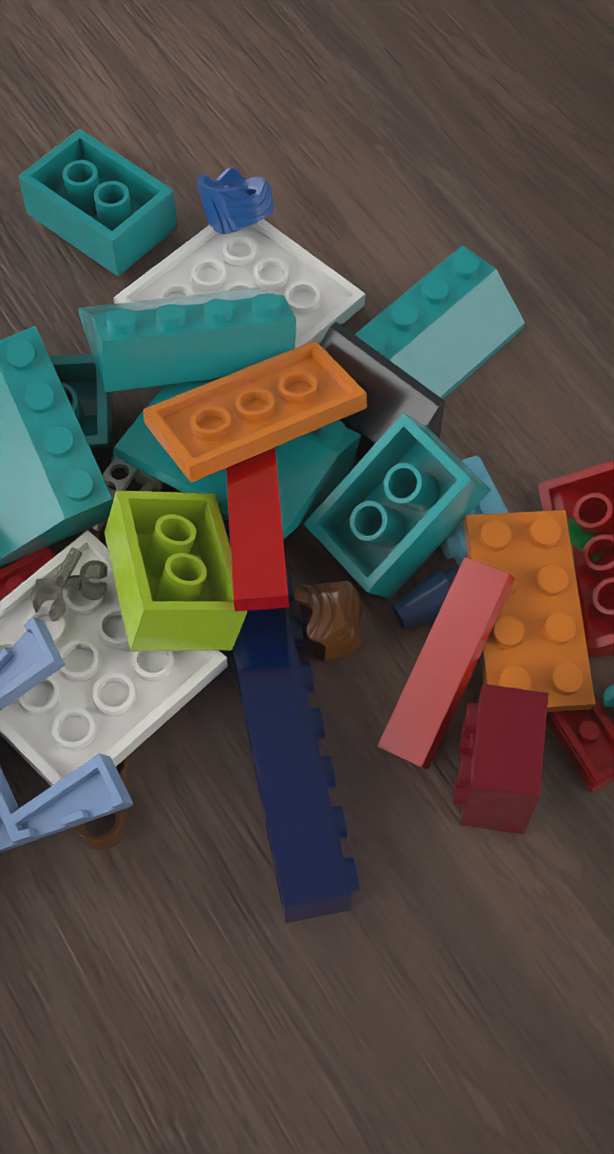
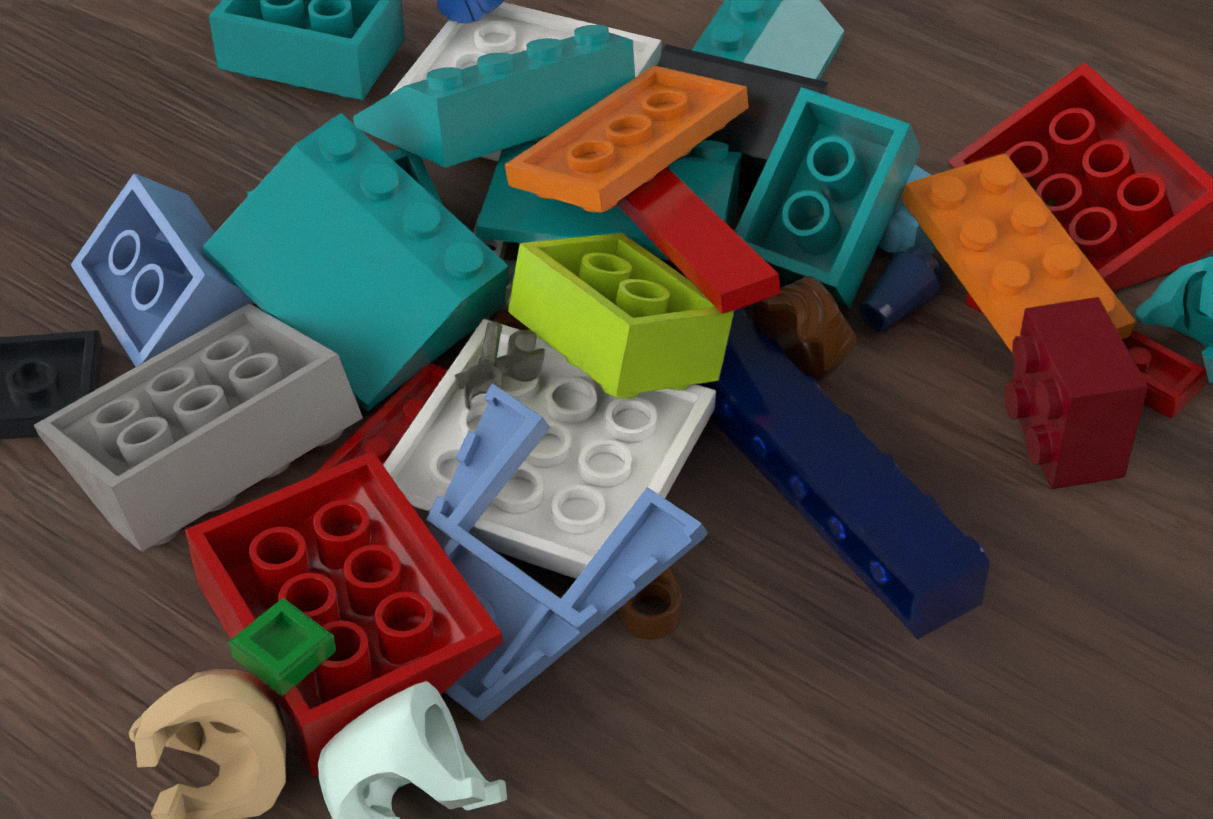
camera: 20 degrees left, 15 degrees down
(446, 662) = (960, 328): tile -> none

